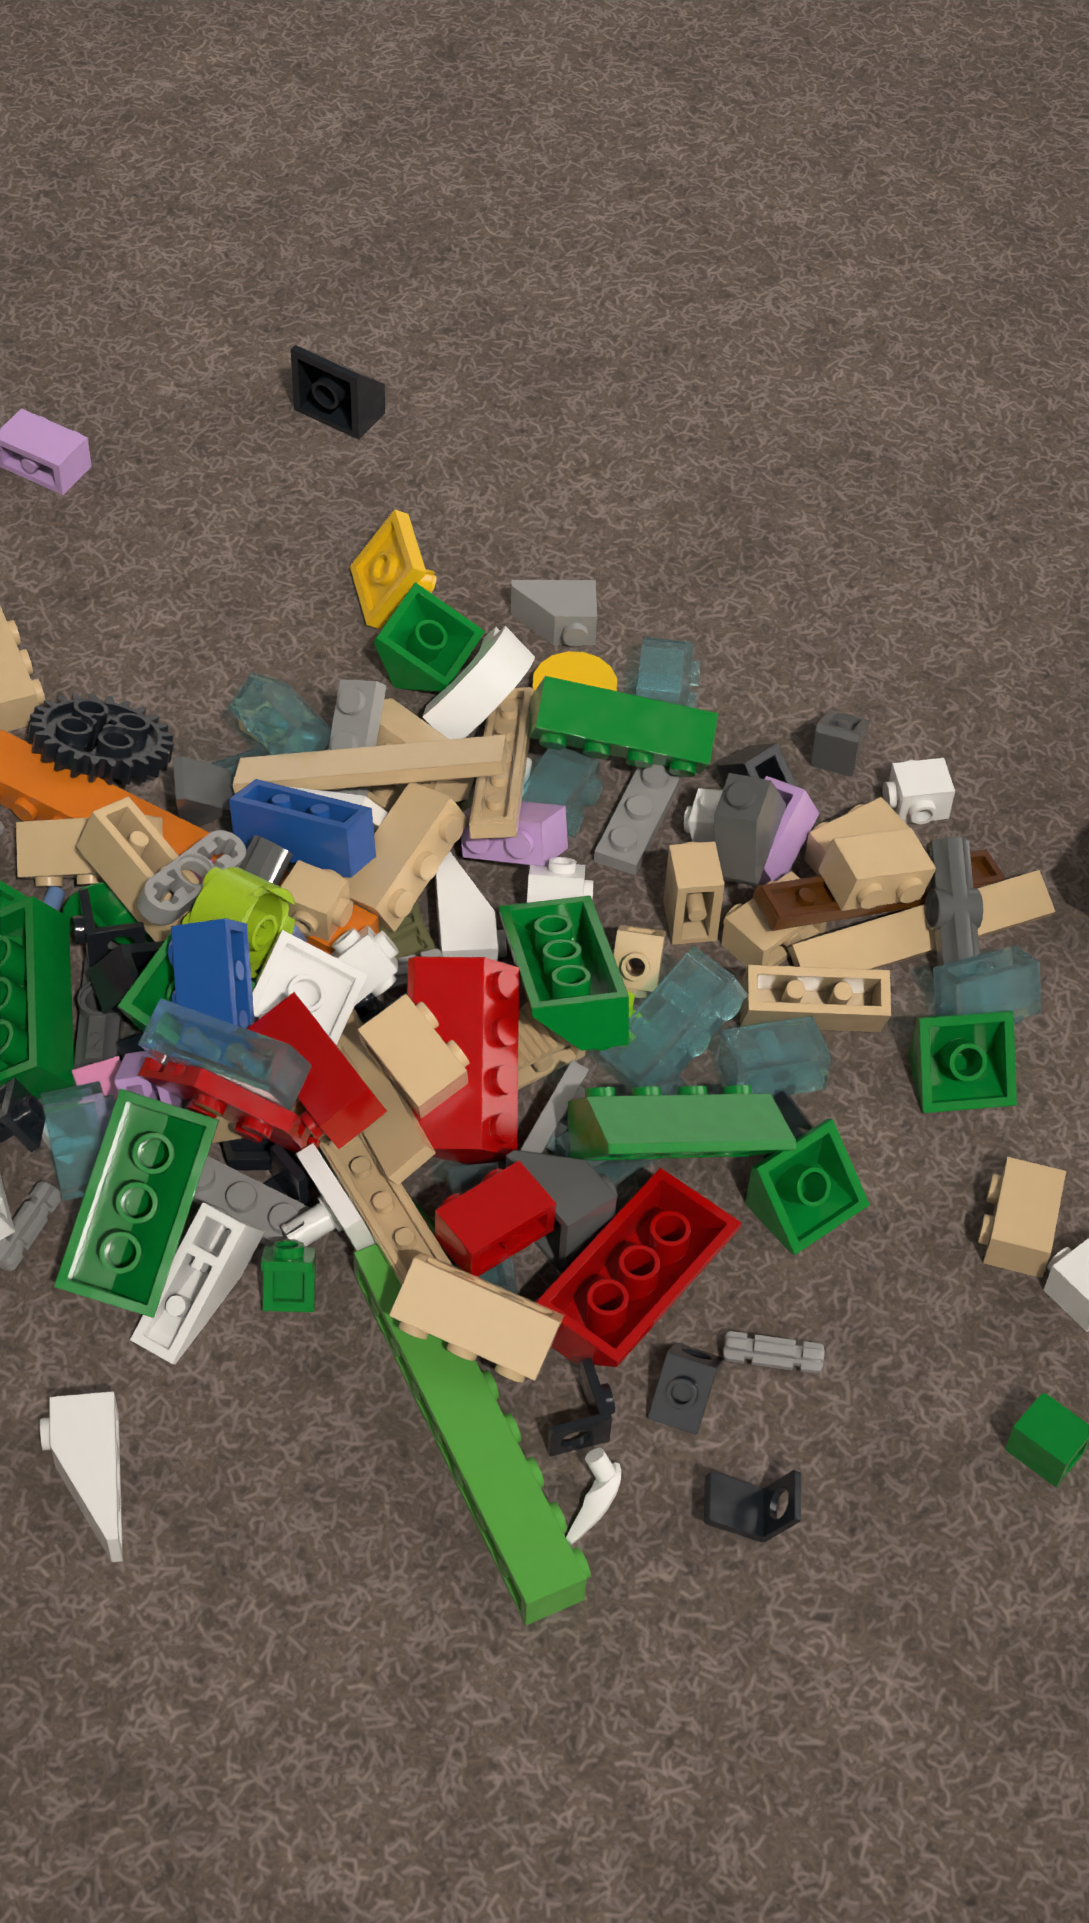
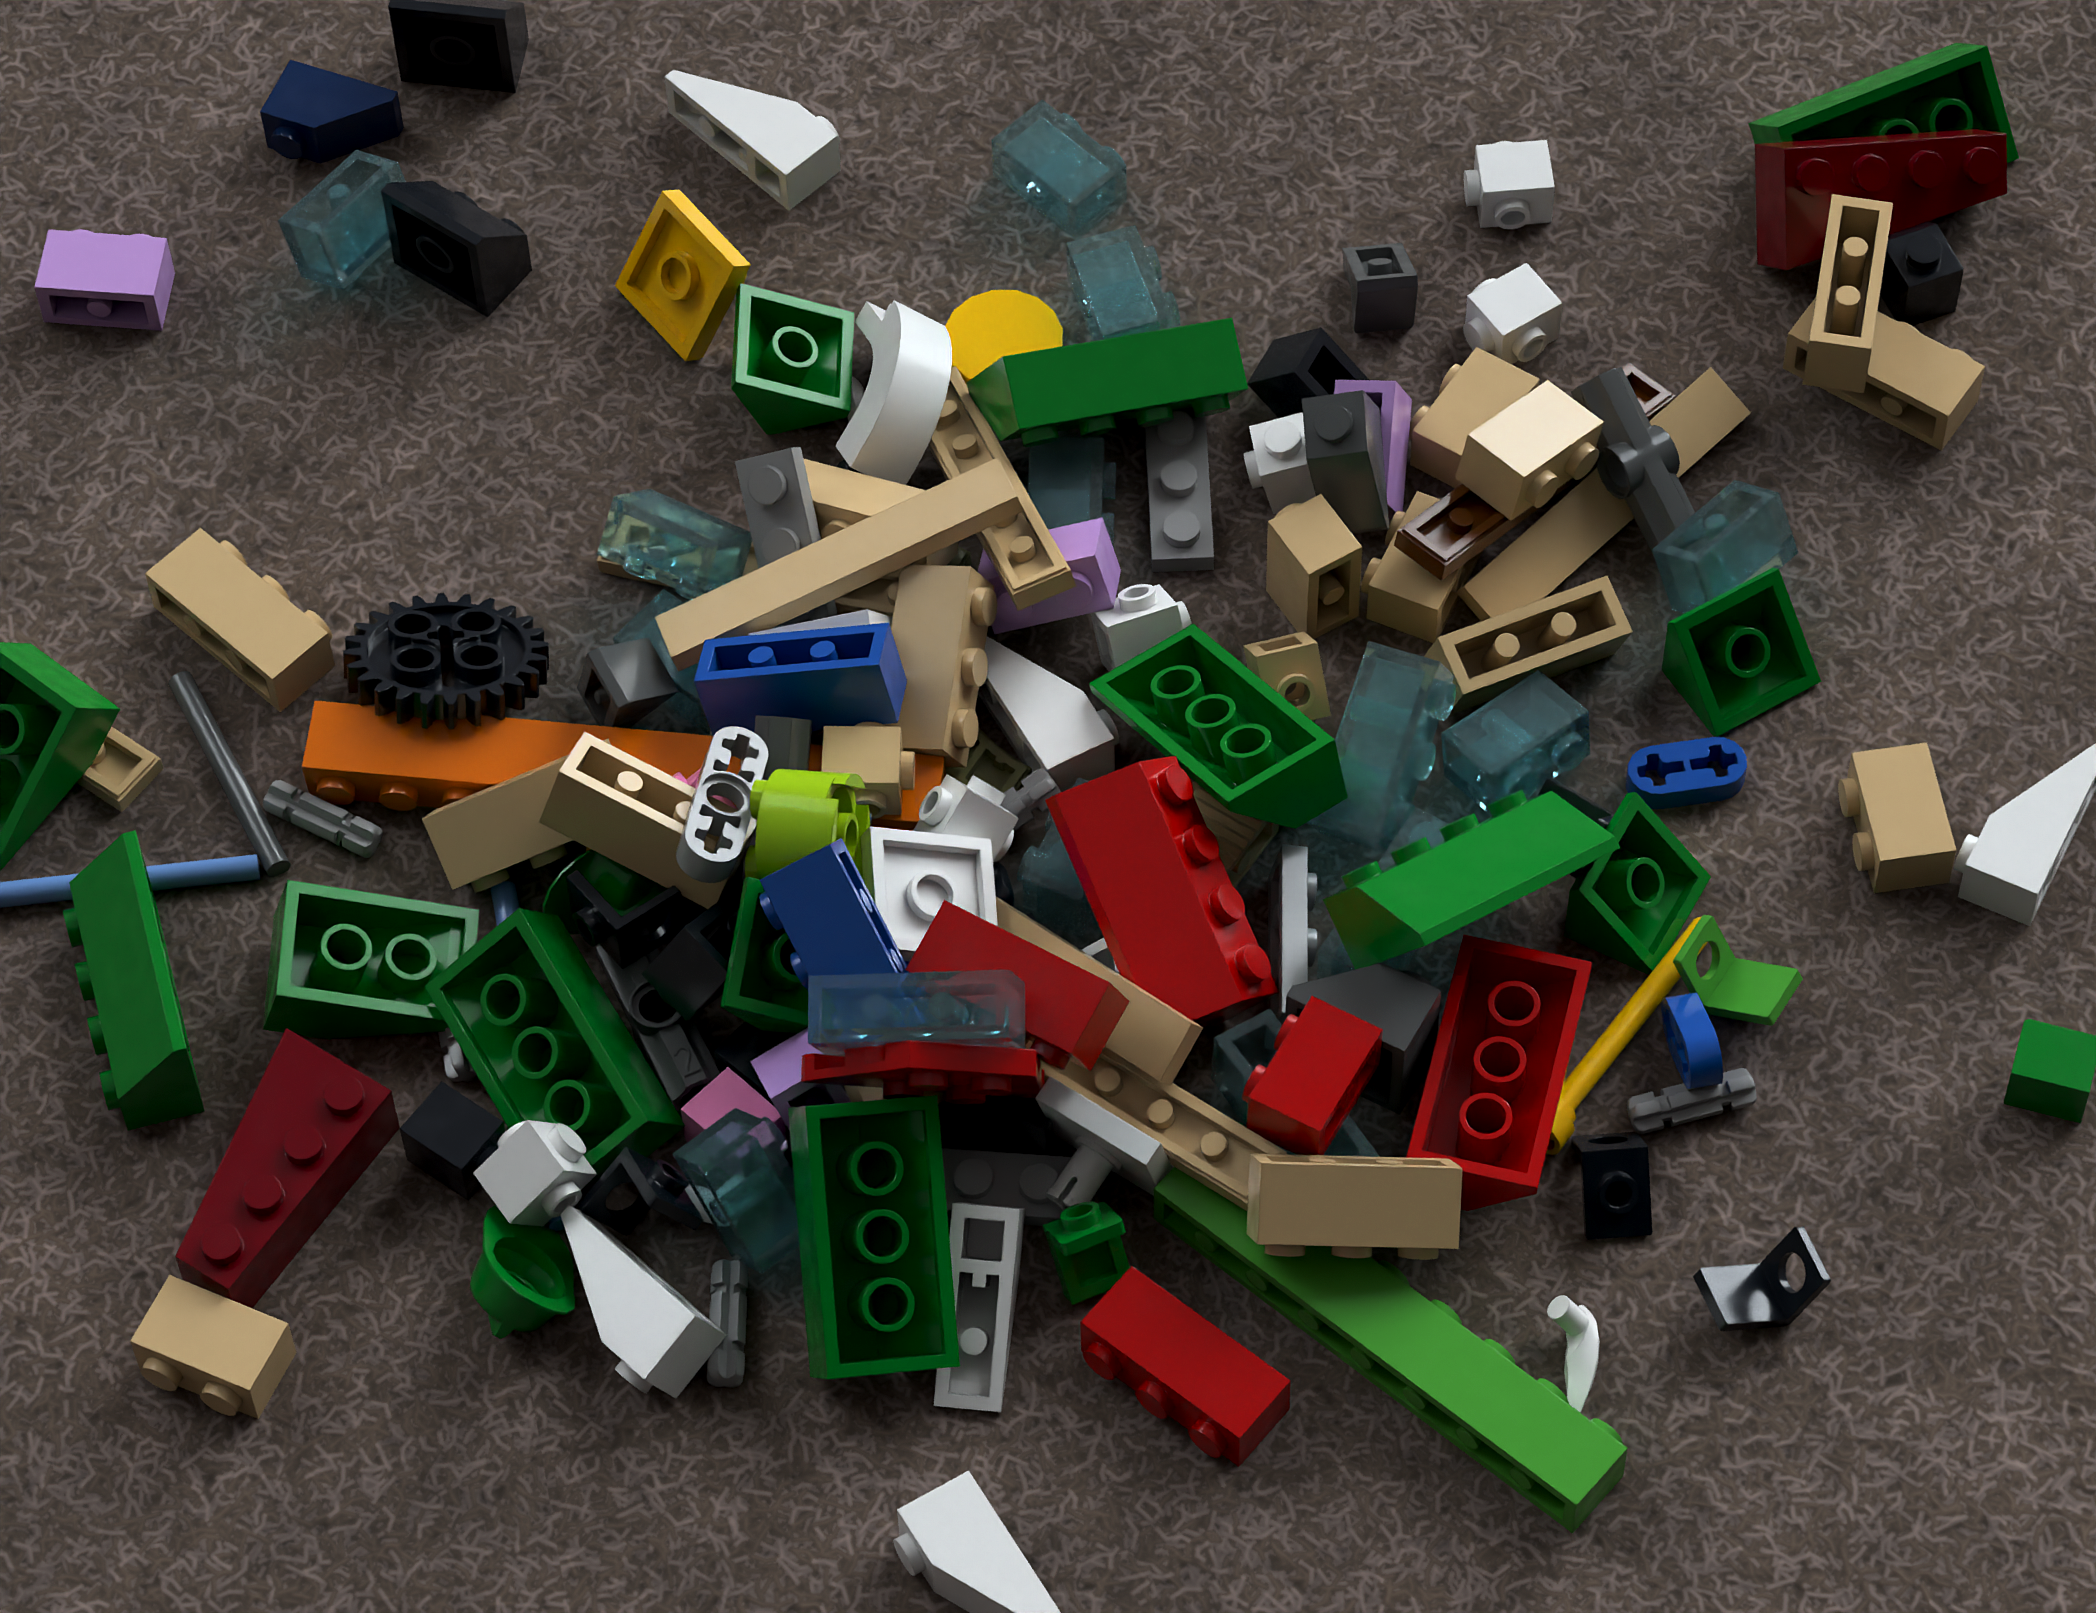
camera: 20 degrees left, 5 degrees up
(205, 468) = (342, 221): none -> clear light blue brick
(232, 408) = (327, 114): none -> dark blue slope
(262, 502) = (455, 243): none -> black slope
(309, 1386) = (1184, 1367): none -> red brick
(415, 1055) = (1119, 918): tan brick -> none
(490, 511) = (759, 134): none -> white slope
(557, 609) = (928, 244): light grey slope -> none
(598, 1425) = (1530, 1249): black bracket -> none
(668, 596) = (1060, 169): none -> clear light blue brick
(675, 1318) = (1614, 1040): none -> yellow piece
(791, 1309) = (1692, 1040): none -> blue beam
(845, 1284) = (1734, 985): none -> bright green bracket
(887, 1128) = (1686, 772): none -> blue beam
(962, 710) = (1511, 184): none -> white brick

